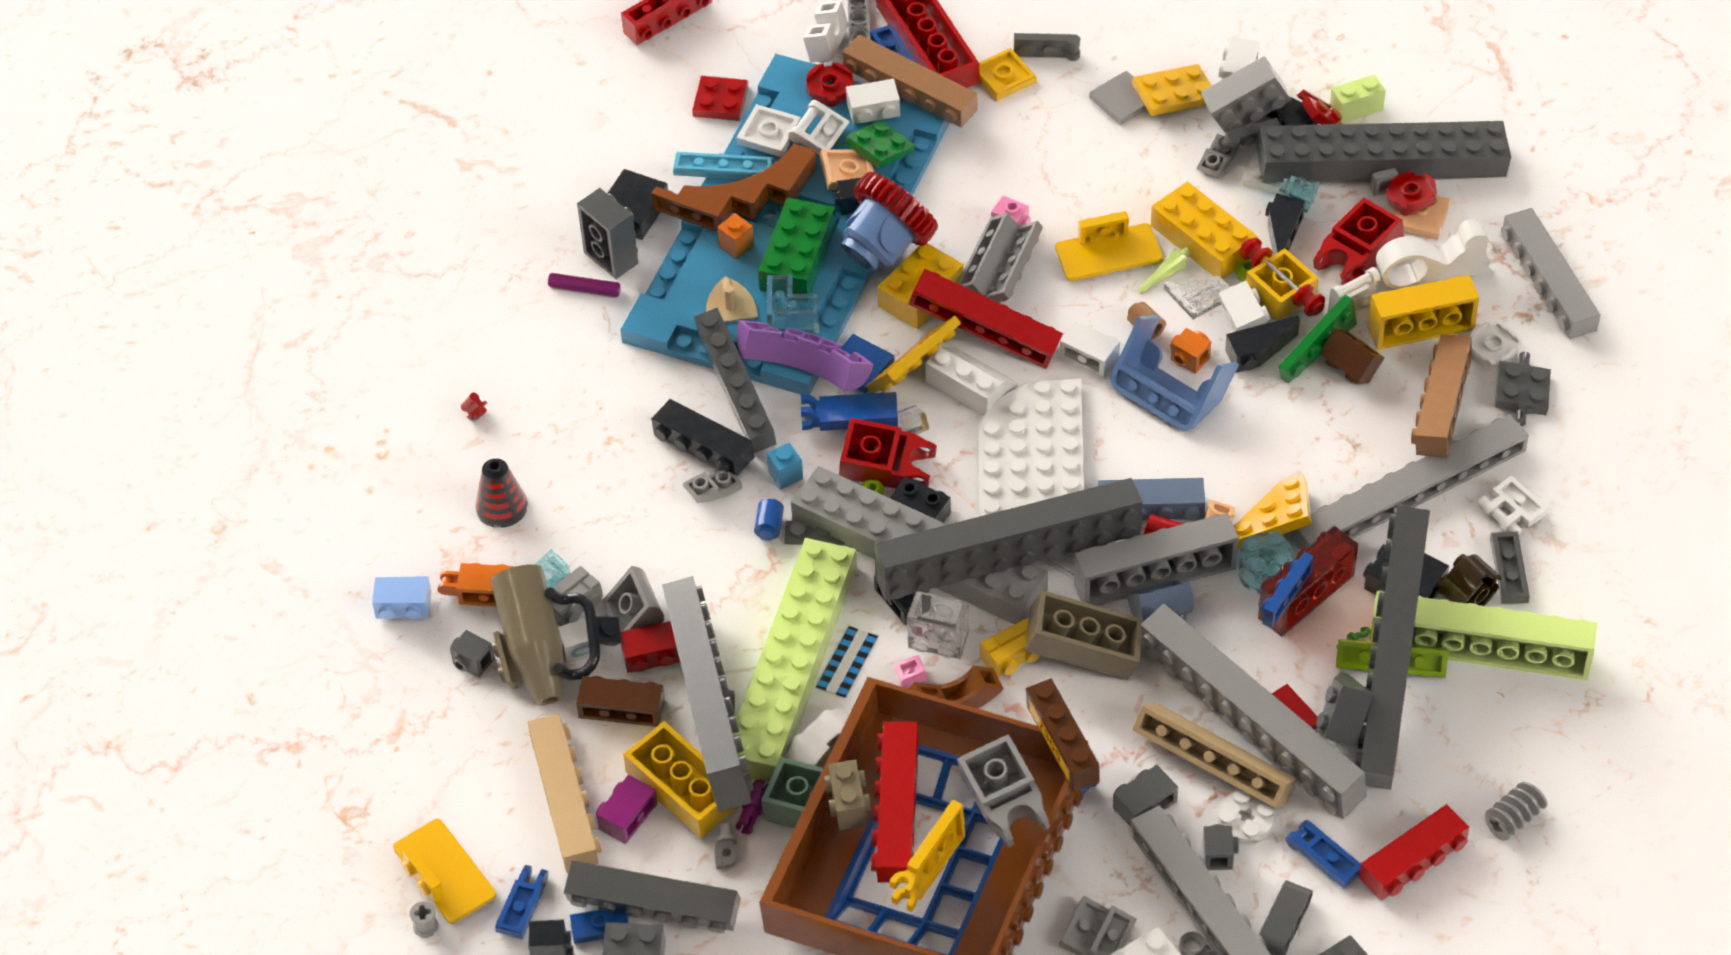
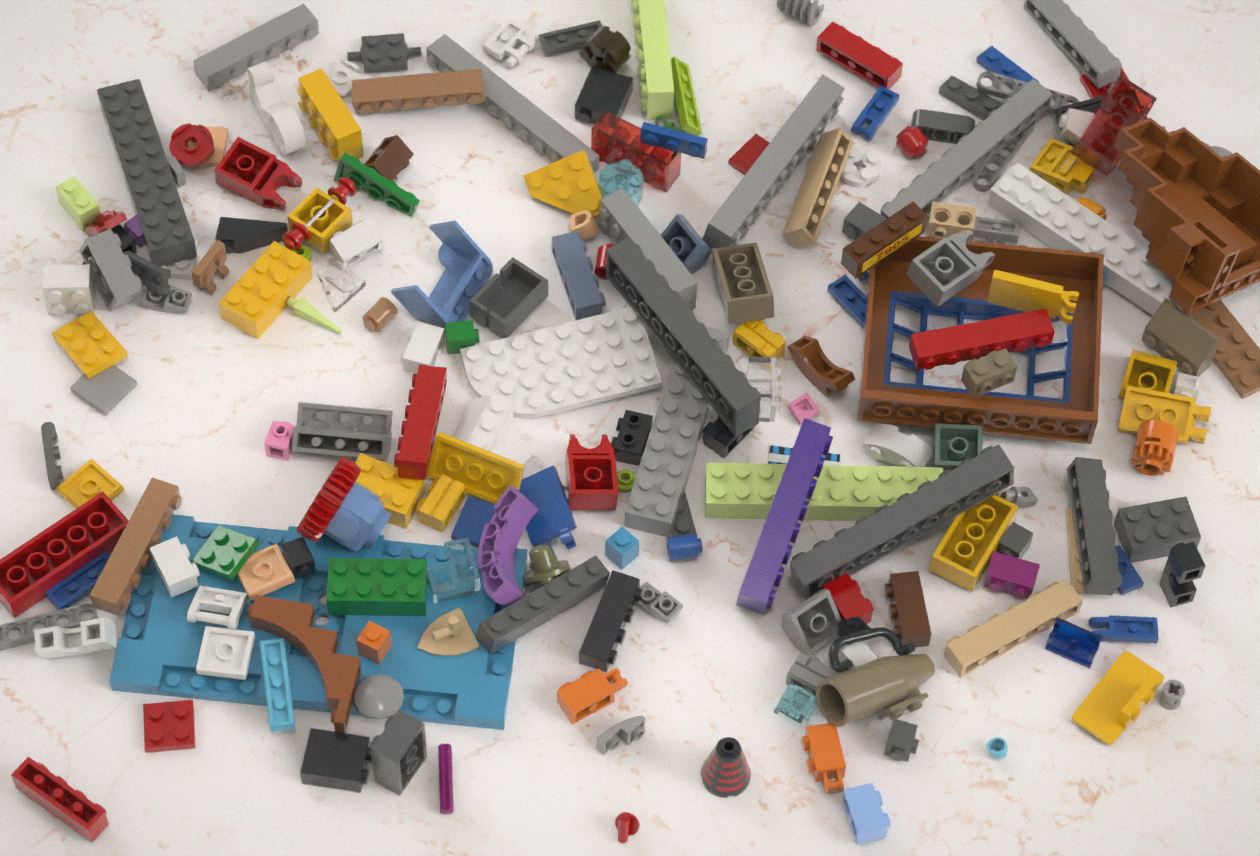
camera: 110 degrees left, 5 degrees up
(425, 738) = (998, 744): none -> medium azure hinge
(524, 847) = (1073, 642): none -> clear blue hinge
(571, 417) = (626, 730): none -> light grey slope
(628, 406) = (589, 693): none -> orange brick
(666, 823) = (1015, 541): none -> dark grey brick
(679, 236) = (378, 697): none -> light grey dish
(753, 585) = (786, 510): none -> dark purple brick
(777, 389) = (544, 566): none -> olive plate
(829, 94) = (156, 627): red plate -> none
(891, 329) = (441, 502): none -> yellow brick
(1096, 382) = (460, 335): none -> green brick
(1107, 246) = (302, 360): yellow bracket -> none
(1131, 427) = (510, 305): none -> dark grey piece
(1136, 888) = (950, 219): none -> tan brick
(1190, 349) = (405, 273): orange brick -> none
(1219, 847) = (896, 175): dark grey brick -> none
(1238, 180) = (209, 264): none -> medium nougat plate
(1259, 343) = (395, 234): black slope -> none
(1264, 877) = (912, 142): none -> red head
(1301, 189) = (206, 225): clear light blue brick -> none
(1344, 710) = (764, 100): dark grey slope -> none
(1357, 289) = (317, 167): white plate -> none
(1394, 638) = (705, 66): dark grey brick -> none

